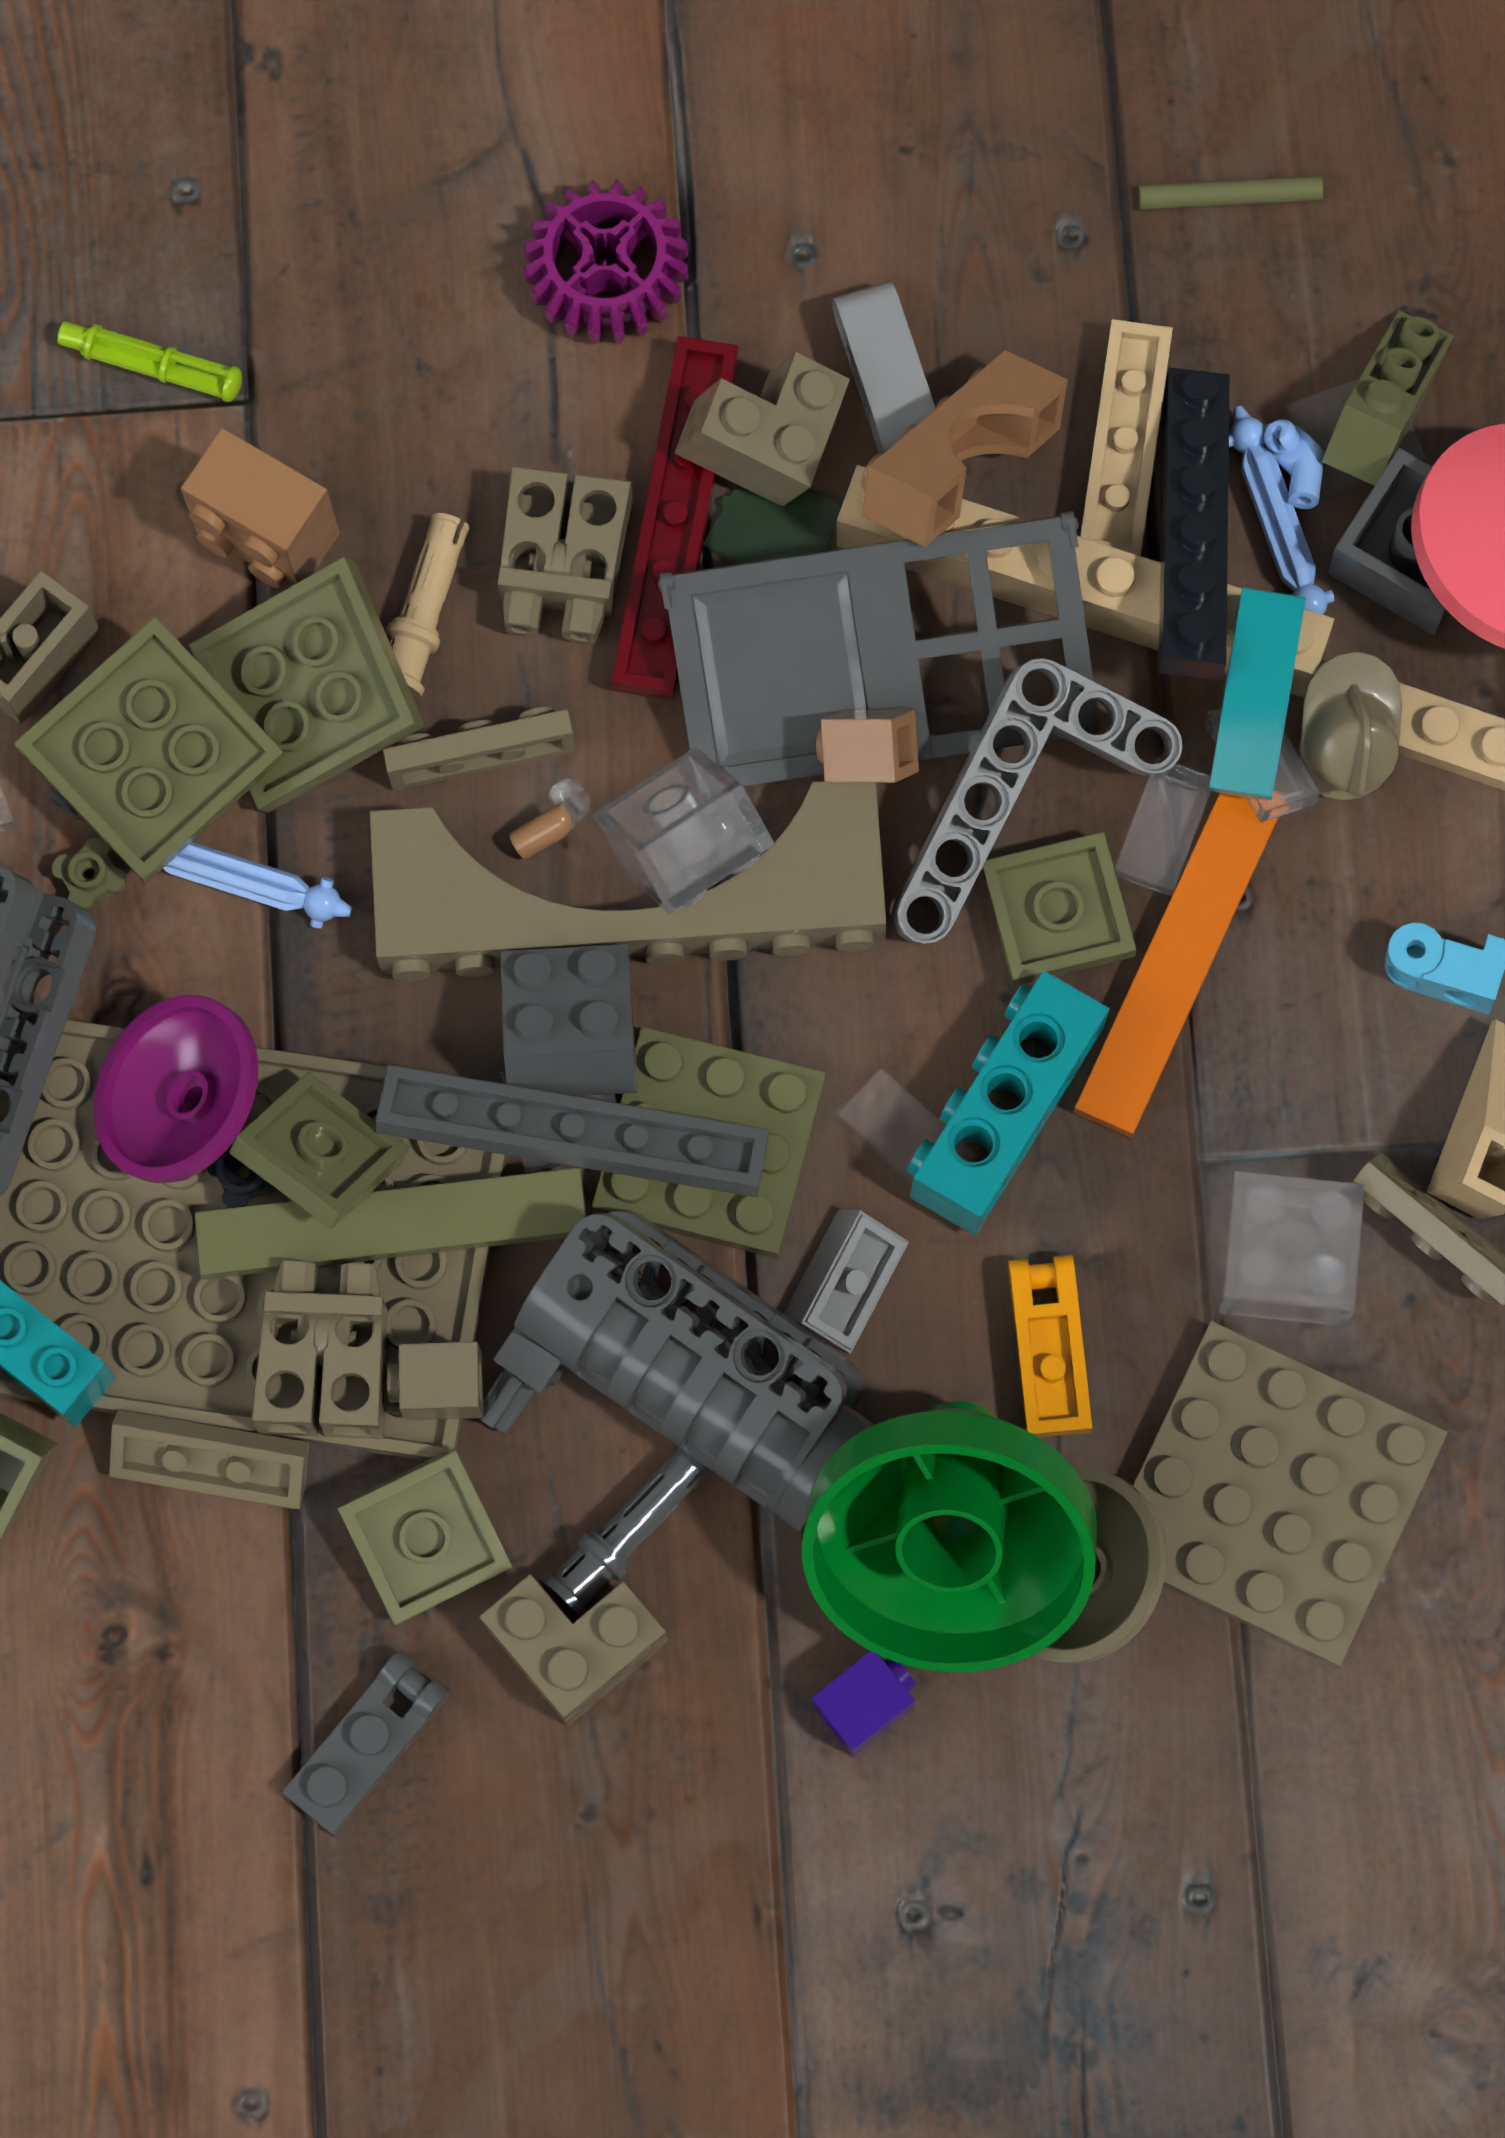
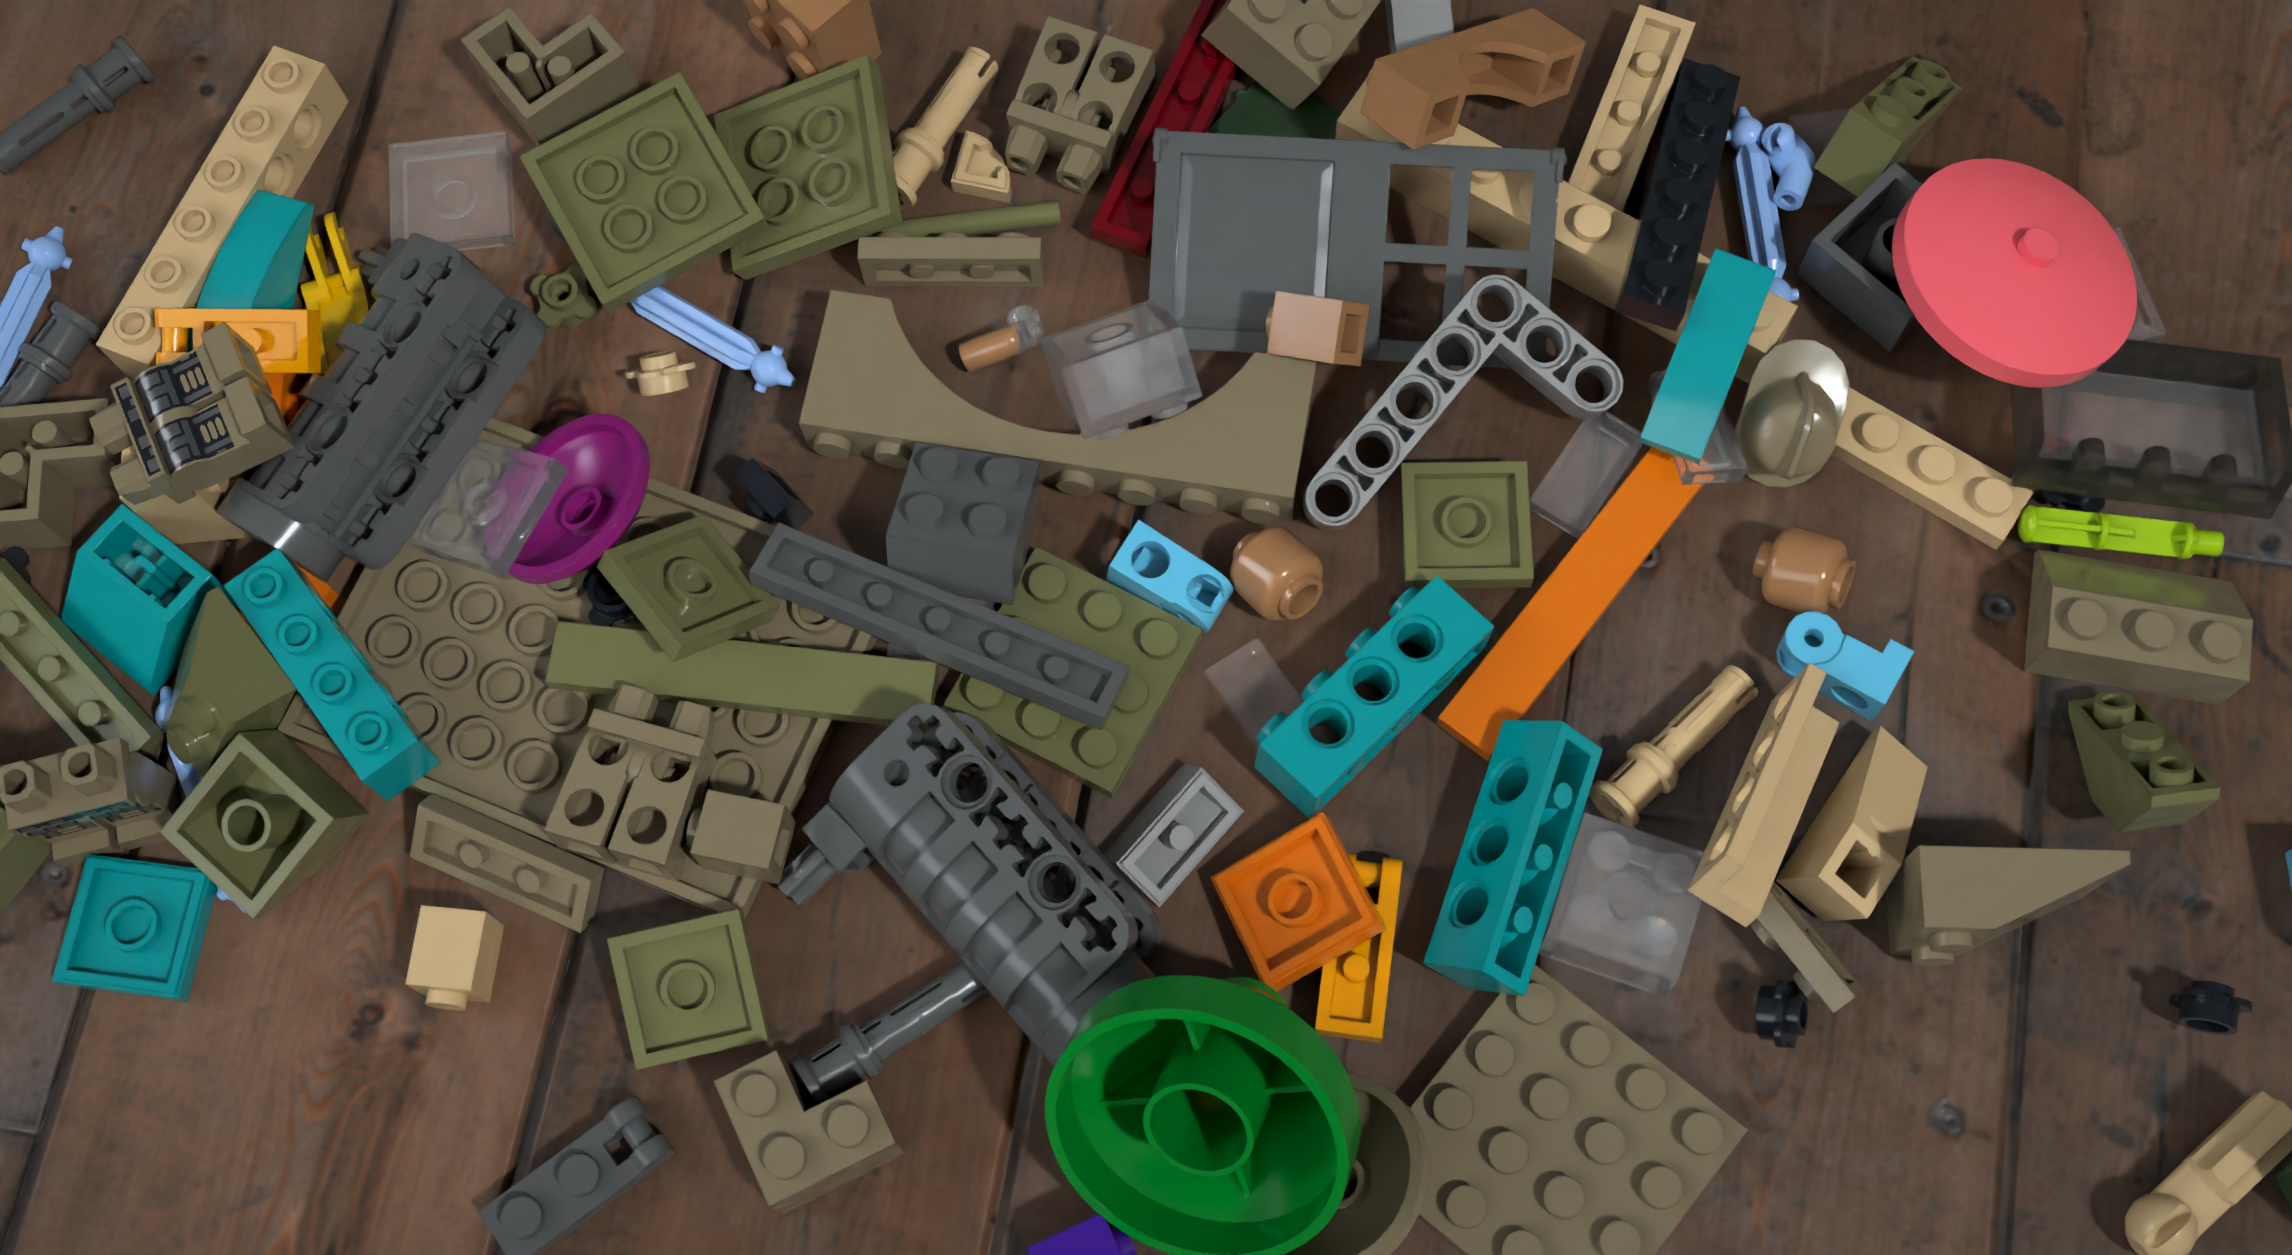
camera: 15 degrees right, 5 degrees down
(94, 1114) = (489, 507): none -> clear tile
(186, 1561) = (454, 956): none -> tan brick
(215, 933) = (661, 373): none -> tan plate
(365, 1036) = (772, 496): none -> black plate
(480, 641) = (981, 170): none -> tan tile
(497, 697) = (983, 221): none -> olive bar
(782, 1029) = (1169, 577): none -> medium azure leg
(886, 1001) = (1276, 574): none -> medium nougat head
(983, 1318) = (1298, 902): none -> orange tile
(1177, 1226) = (1513, 856): none -> teal brick
(1291, 1107) = (1655, 765): none -> tan pin
(1394, 882) = (1804, 571): none -> medium nougat head
(1402, 1119) = (1766, 801): none -> tan fence
(1457, 1317) = (1781, 1013): none -> black plate

